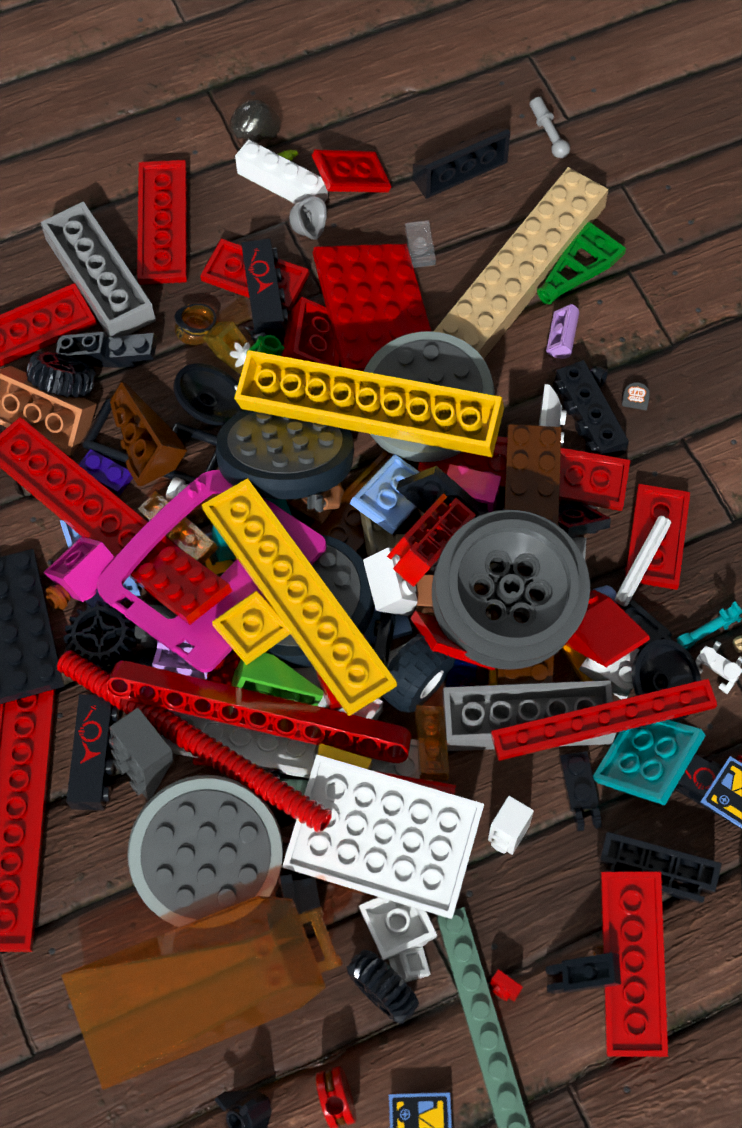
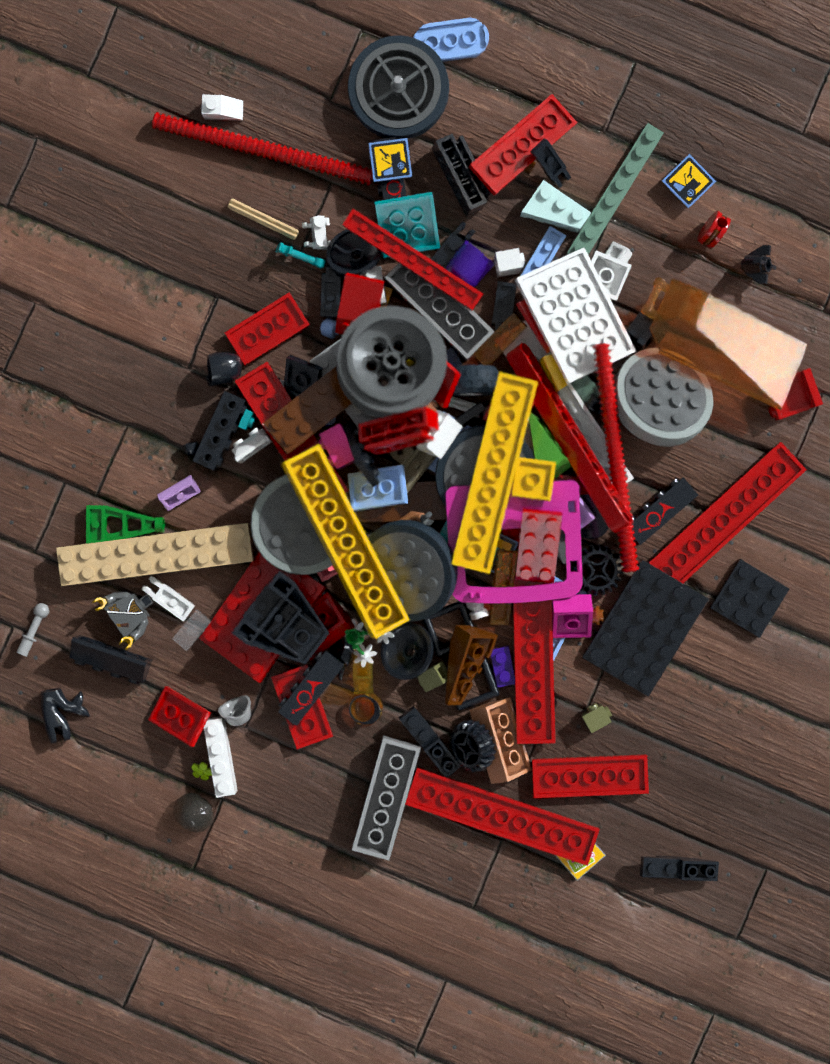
camera: 135 degrees left, 25 degrees up
(55, 1021) = (801, 396): none -> red panel
(140, 752) = (644, 476): dark grey slope -> none
(161, 398) = (433, 677): none -> olive brick
(162, 222) = (315, 798): red plate -> none
(348, 299) = (282, 621): none -> black wedge
(382, 986) = (644, 253): black gear -> none
(462, 90) = (52, 718): none -> black piece
(468, 248) = (170, 599): none -> white hinge
(469, 785) = (503, 303): none -> black hinge
(486, 884) = (546, 250): none -> light blue tile
(488, 204) = (127, 614): none -> dark grey torso
(505, 986) = (588, 198): red plate -> none
(526, 937) = (555, 208): none -> light aqua wedge
(545, 783) = (469, 264): none -> dark purple cylinder
(578, 440) = (247, 420): none -> teal plate
(636, 396) = (184, 416): dark grey tile -> none
(642, 561) = (293, 321): white axle -> none
(654, 459) = (223, 368): none -> black piece

